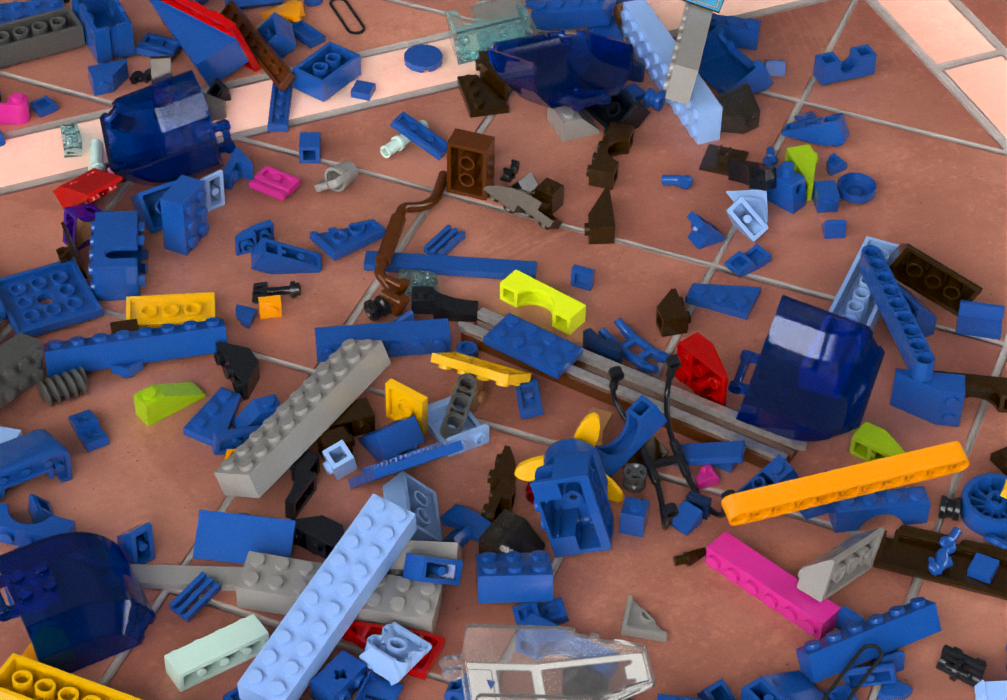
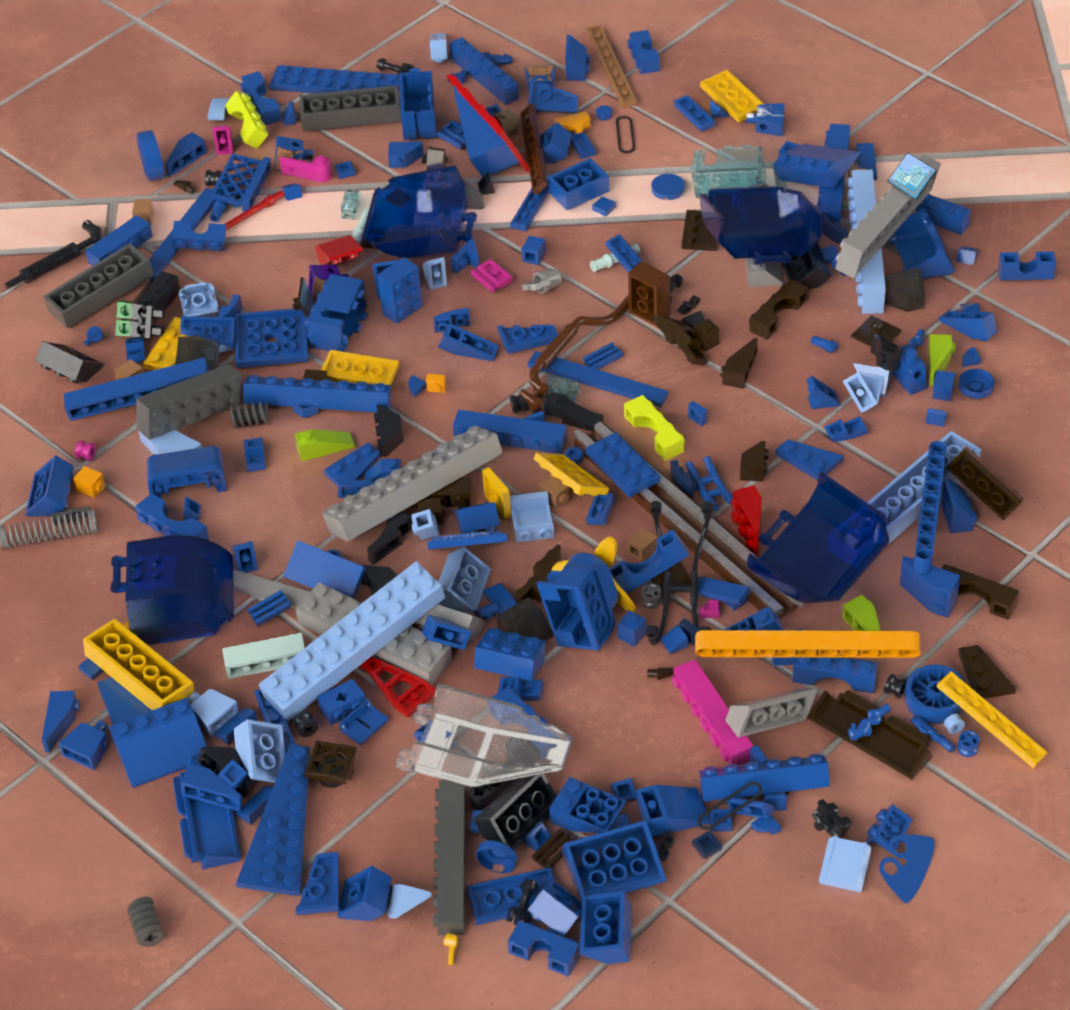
camera: 25 degrees right, 5 degrees up
(261, 290) = (440, 367): black hinge -> none
(394, 652) = (389, 690): light blue slope -> none
(461, 398) = (538, 495): dark grey beam -> none
(640, 624) = (593, 716): light grey tile -> none
(980, 319) = (1016, 528): blue panel -> none
(983, 568) = (894, 743): blue tile -> none

